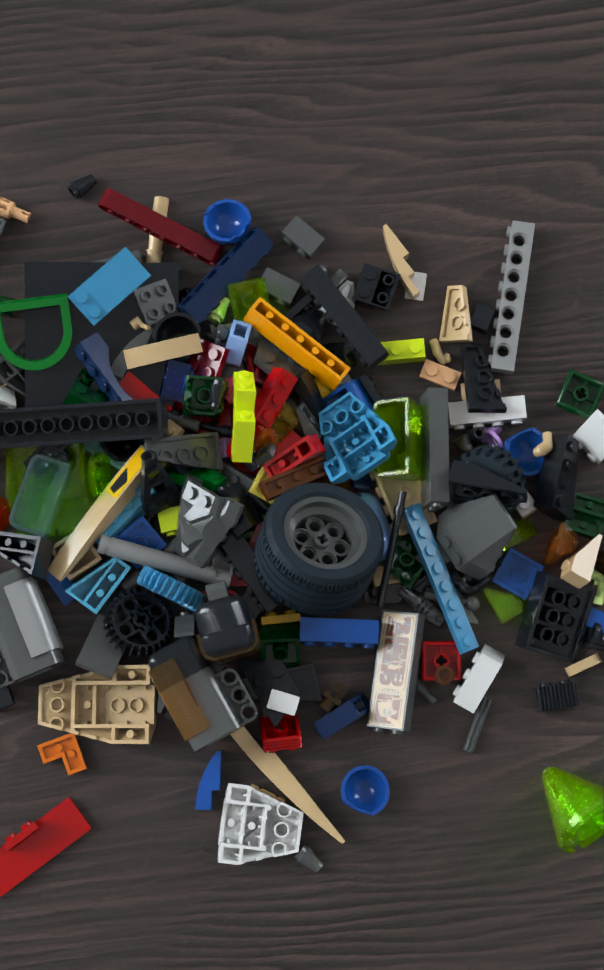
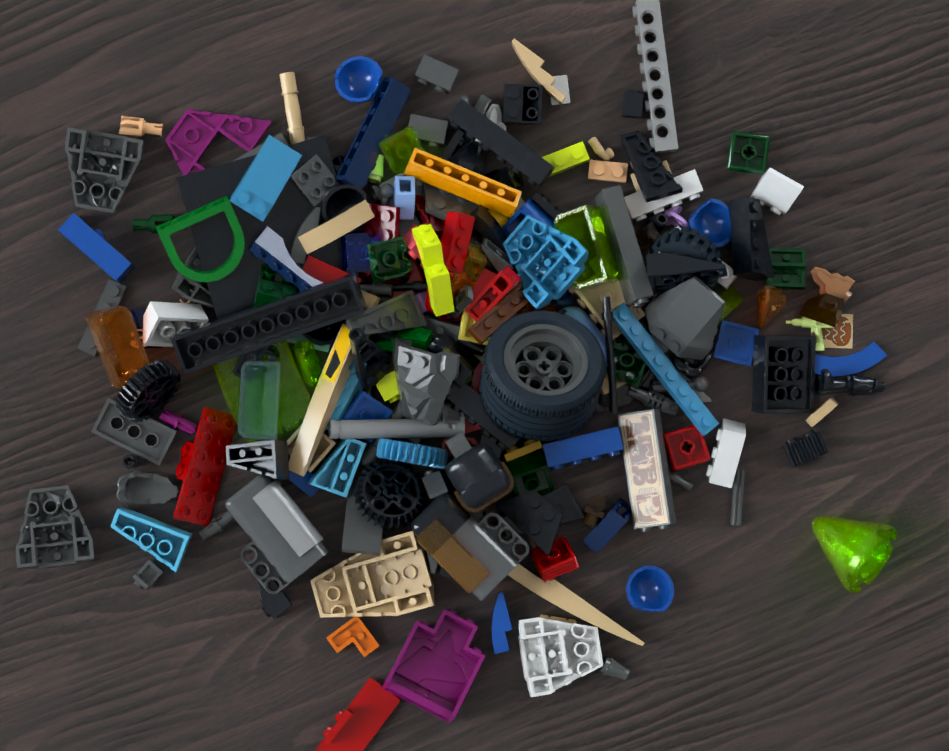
camera: 25 degrees left, 5 degrees up
(62, 227) = (198, 129): none -> magenta wing
(81, 186) = (205, 83): black cone -> none
(135, 803) = (436, 665): none -> magenta panel
(137, 323) = (302, 206): tan hand -> none
(160, 227) = (295, 103): dark red beam -> none
(218, 392) = (402, 252): black cone -> none
(283, 702) = (549, 529): white sticker -> none
(444, 675) = (693, 460): reddish brown plate -> none
(456, 316) = (607, 110): tan wing -> none
(503, 604) = (731, 376): clear neon green slope -> none
(545, 446) = (729, 213): tan arm -> none
(580, 566) = (793, 320): tan slope -> none

